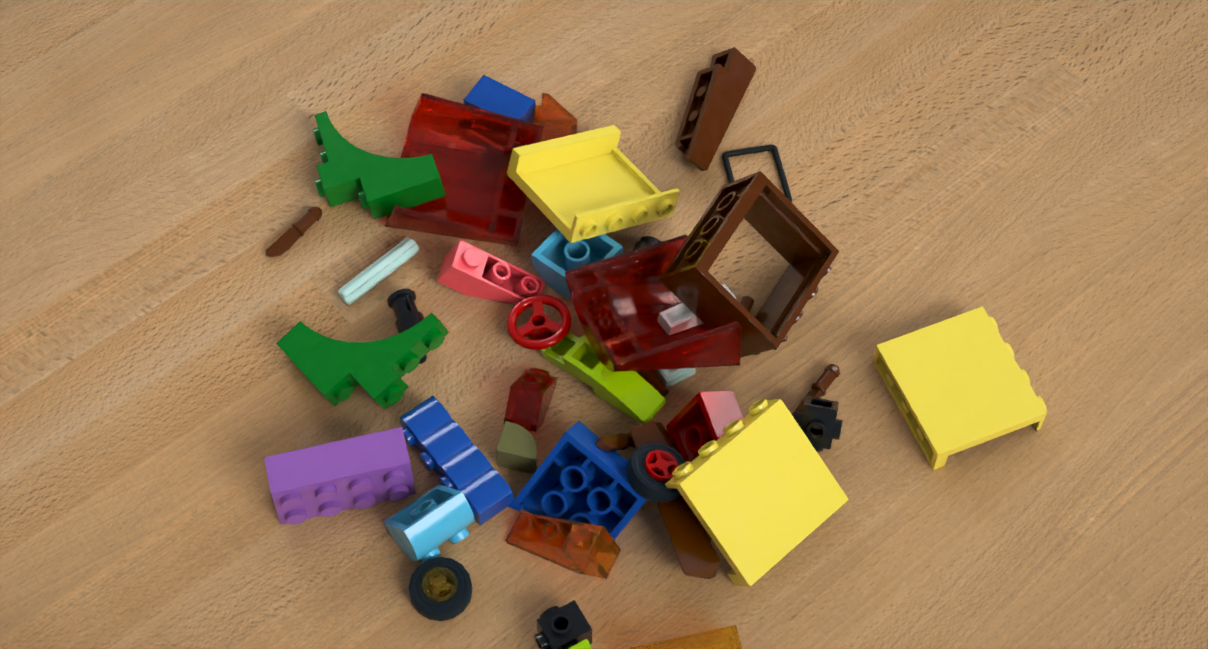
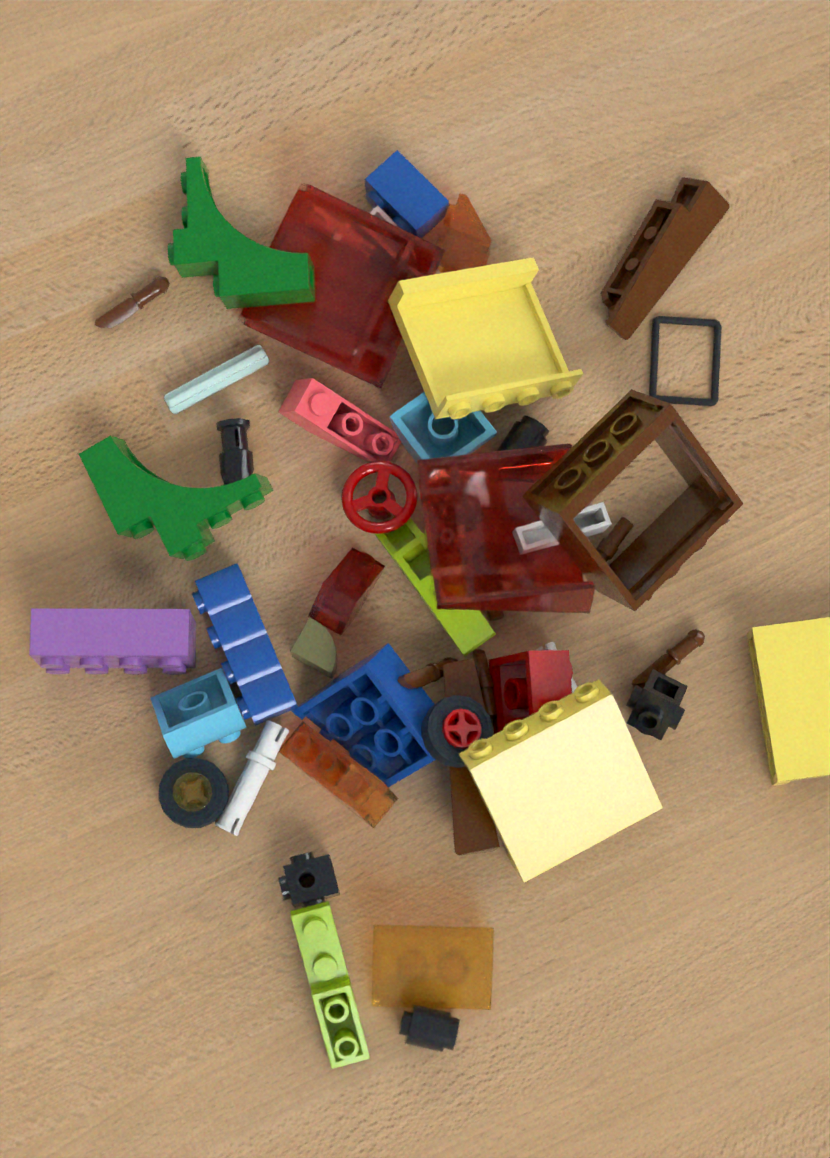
camera: 15 degrees right, 20 degrees up
(492, 551) = (252, 777): none -> white pin

